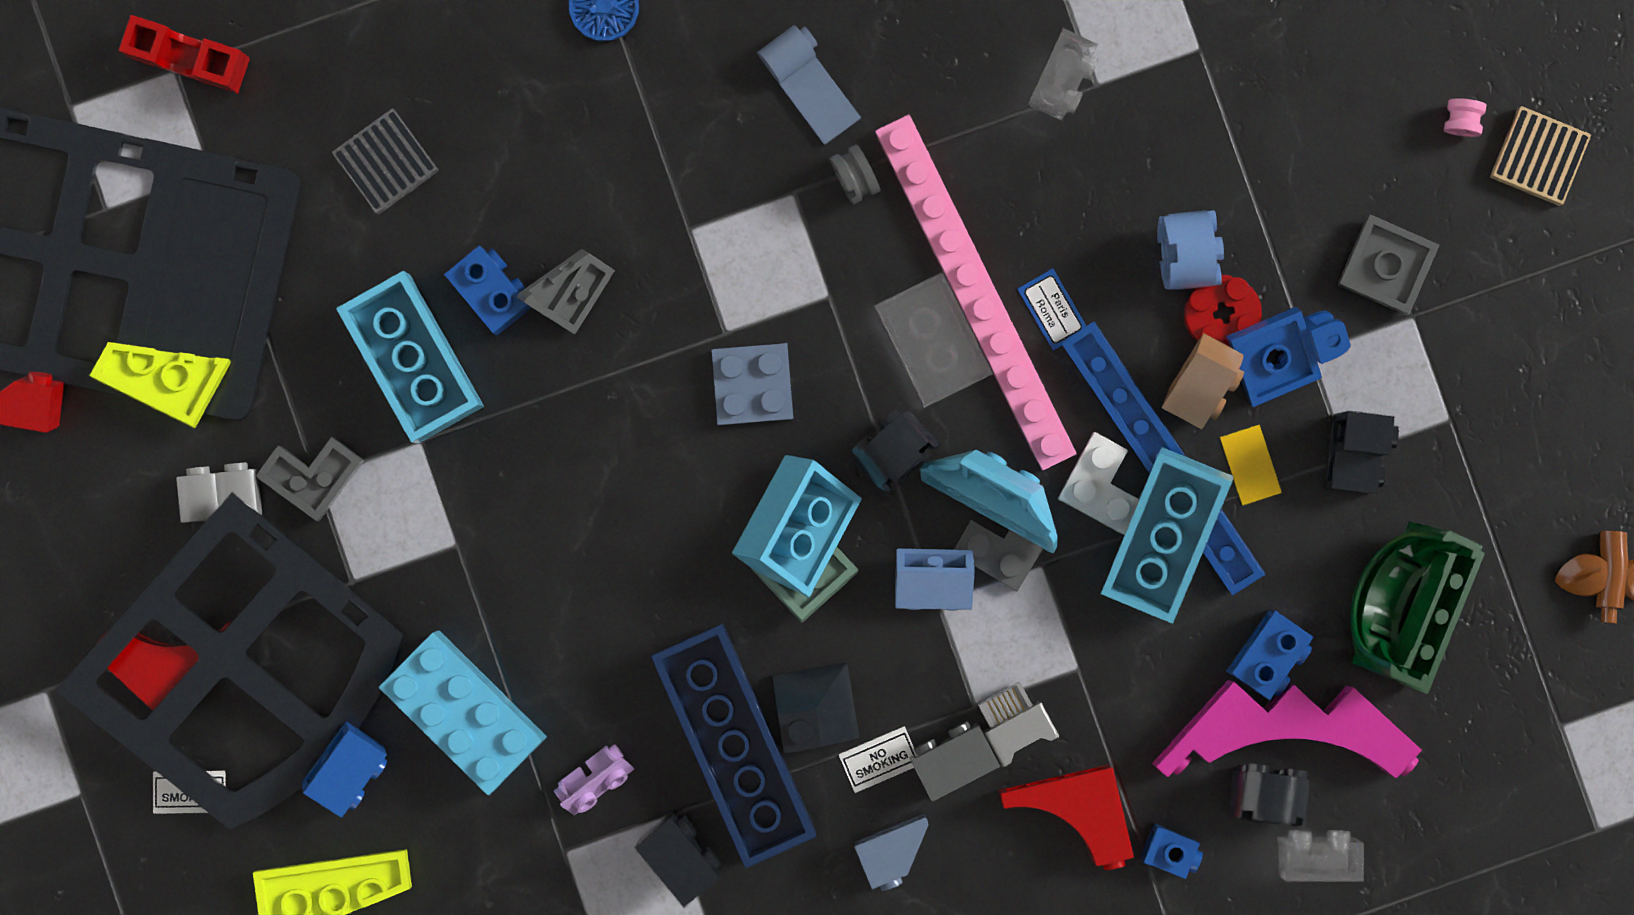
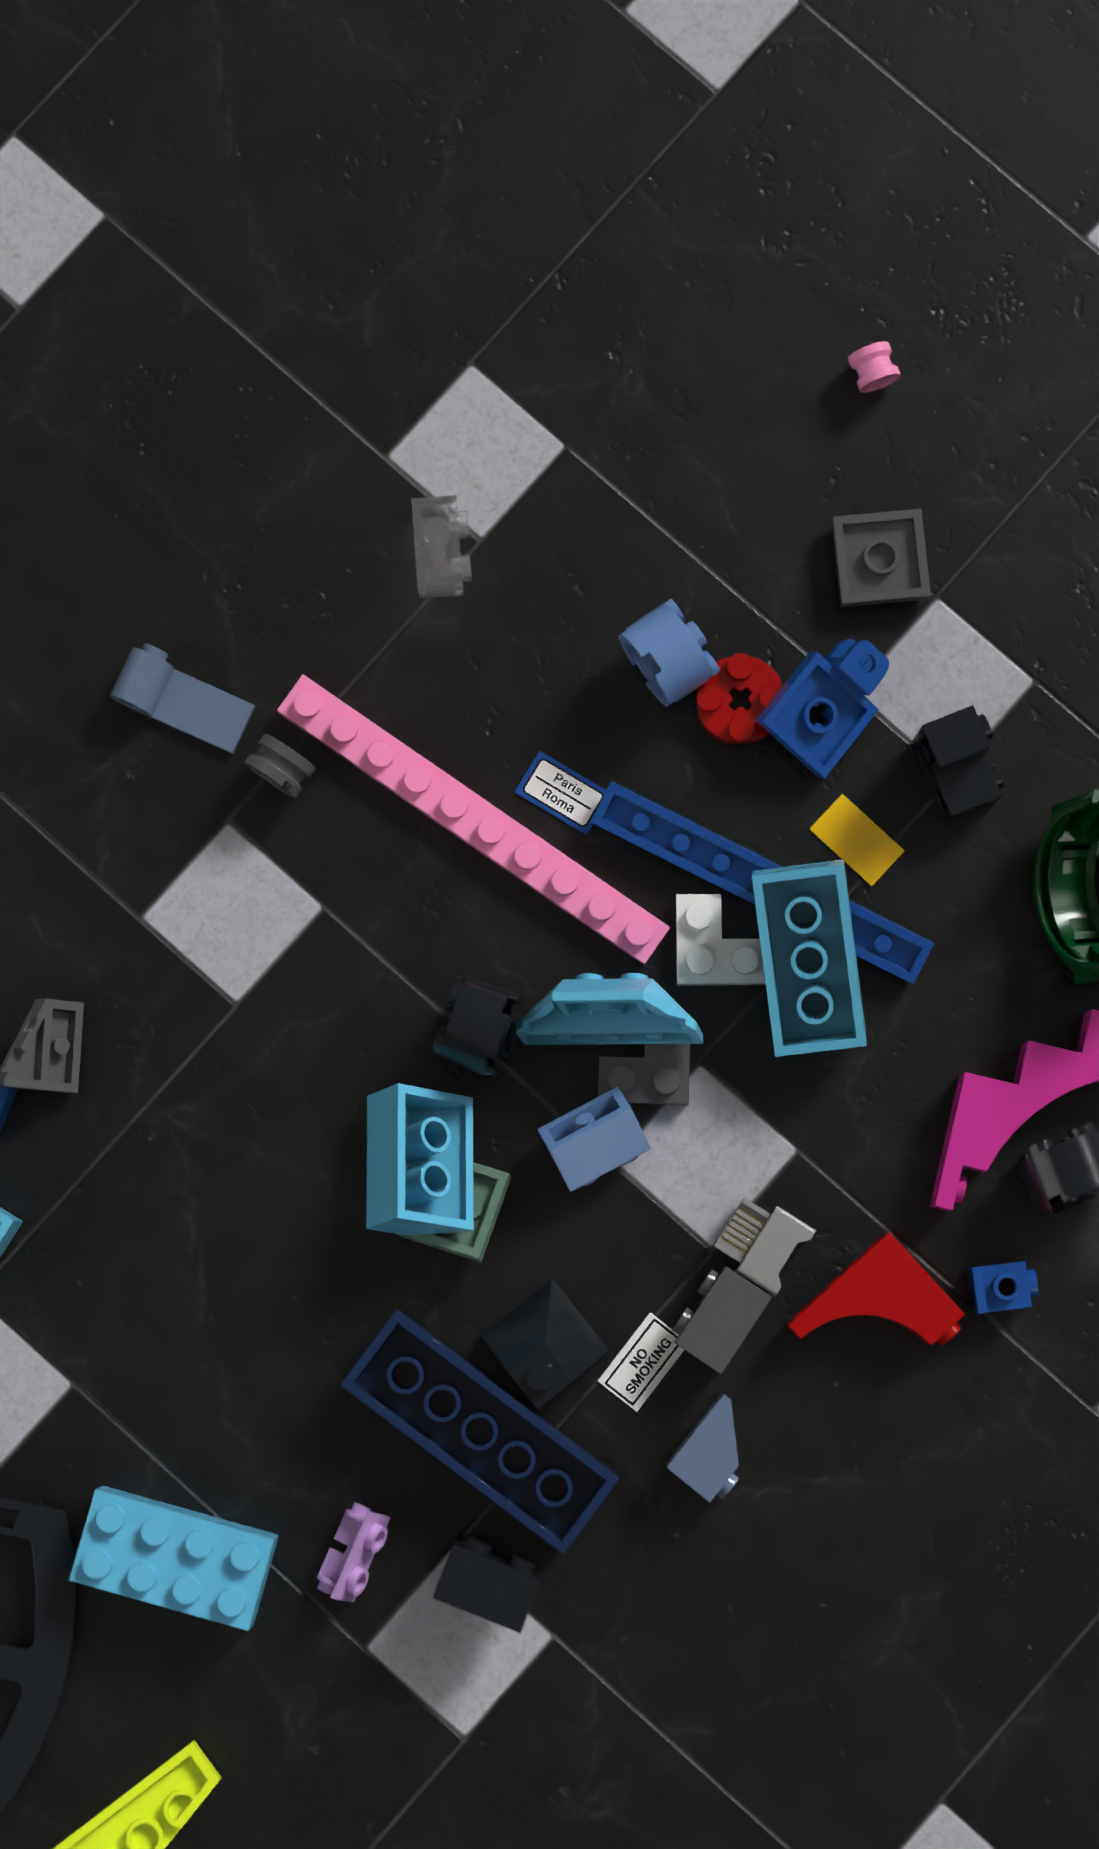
camera: 25 degrees left, 5 degrees down
(344, 770) = (81, 1690): blue brick -> none
(752, 384) = (293, 1042): sand blue plate -> none
(933, 340) = (456, 892): clear tile -> none
(1203, 382) = (758, 779): medium nougat brick -> none
(1270, 655) = (988, 1024): blue brick -> none
(1540, 156) = (973, 364): tile -> none

